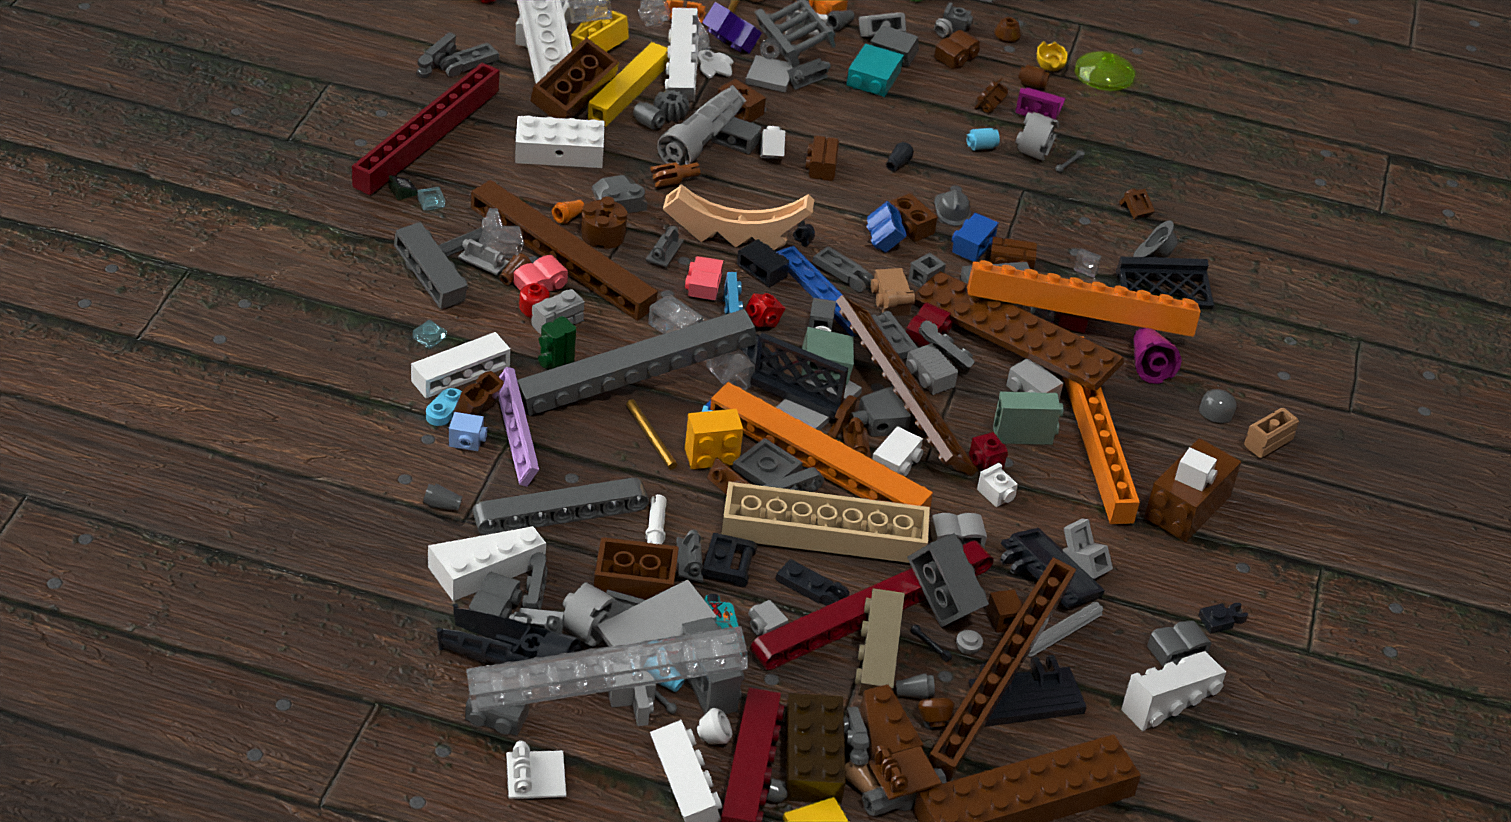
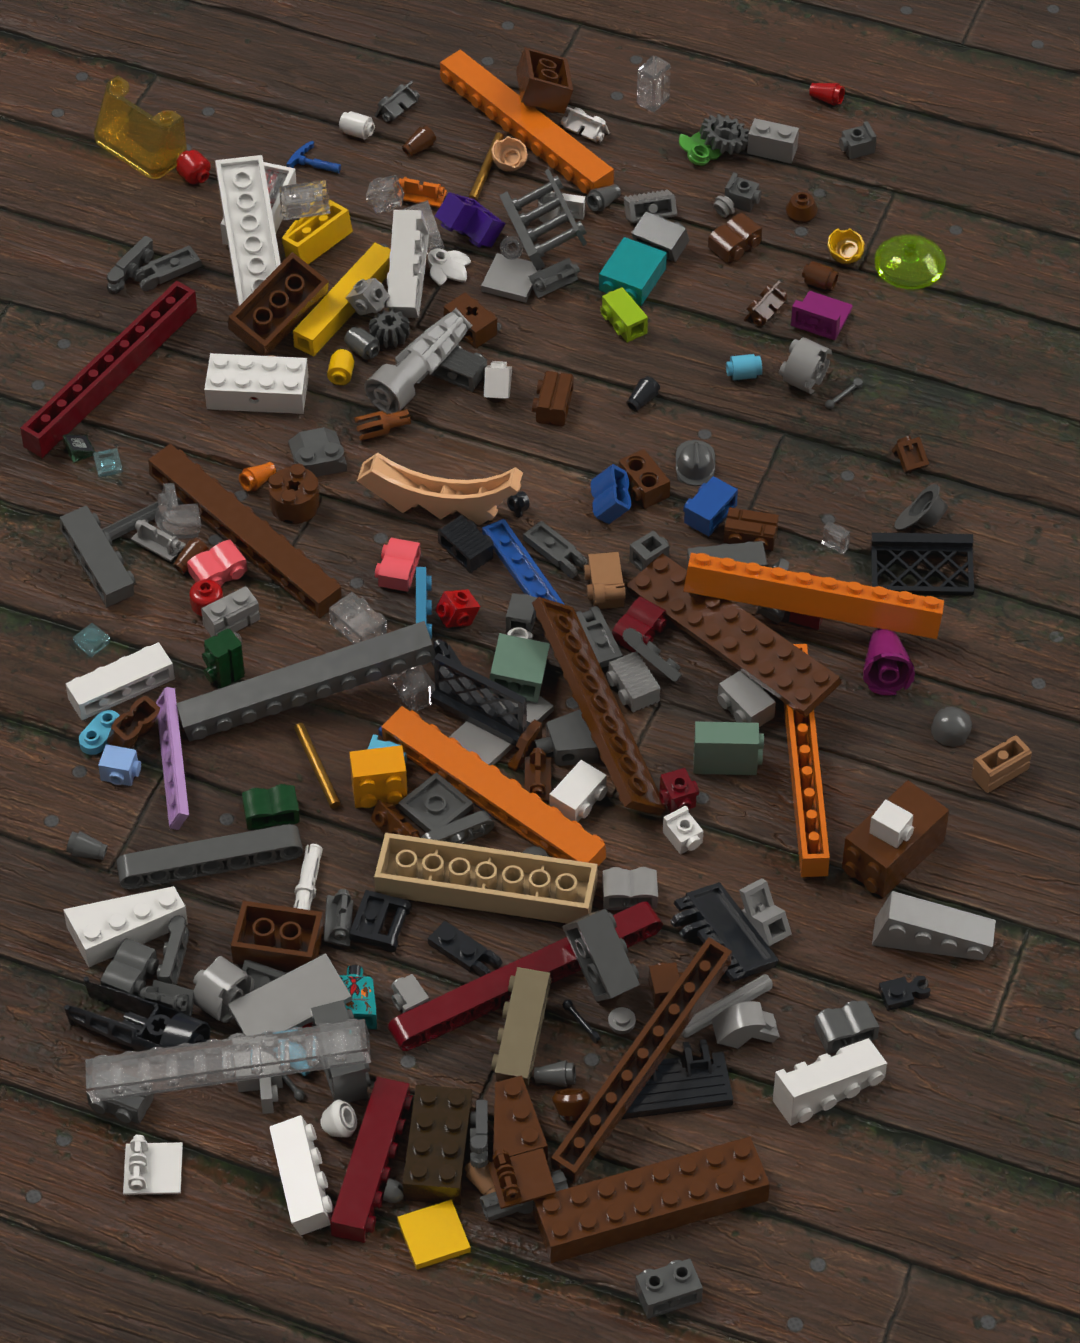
camera: 10 degrees right, 10 degrees up
(613, 464) = (270, 807): none -> dark green brick
(632, 133) = (340, 367): none -> yellow brick
(651, 78) = (367, 296): none -> light grey brick
(665, 247) = (360, 524): dark grey hinge -> none
(873, 100) = (624, 314): none -> lime brick
(1085, 639) = (742, 1022): none -> light grey brick
(1239, 562) = (932, 928): none -> light grey wedge

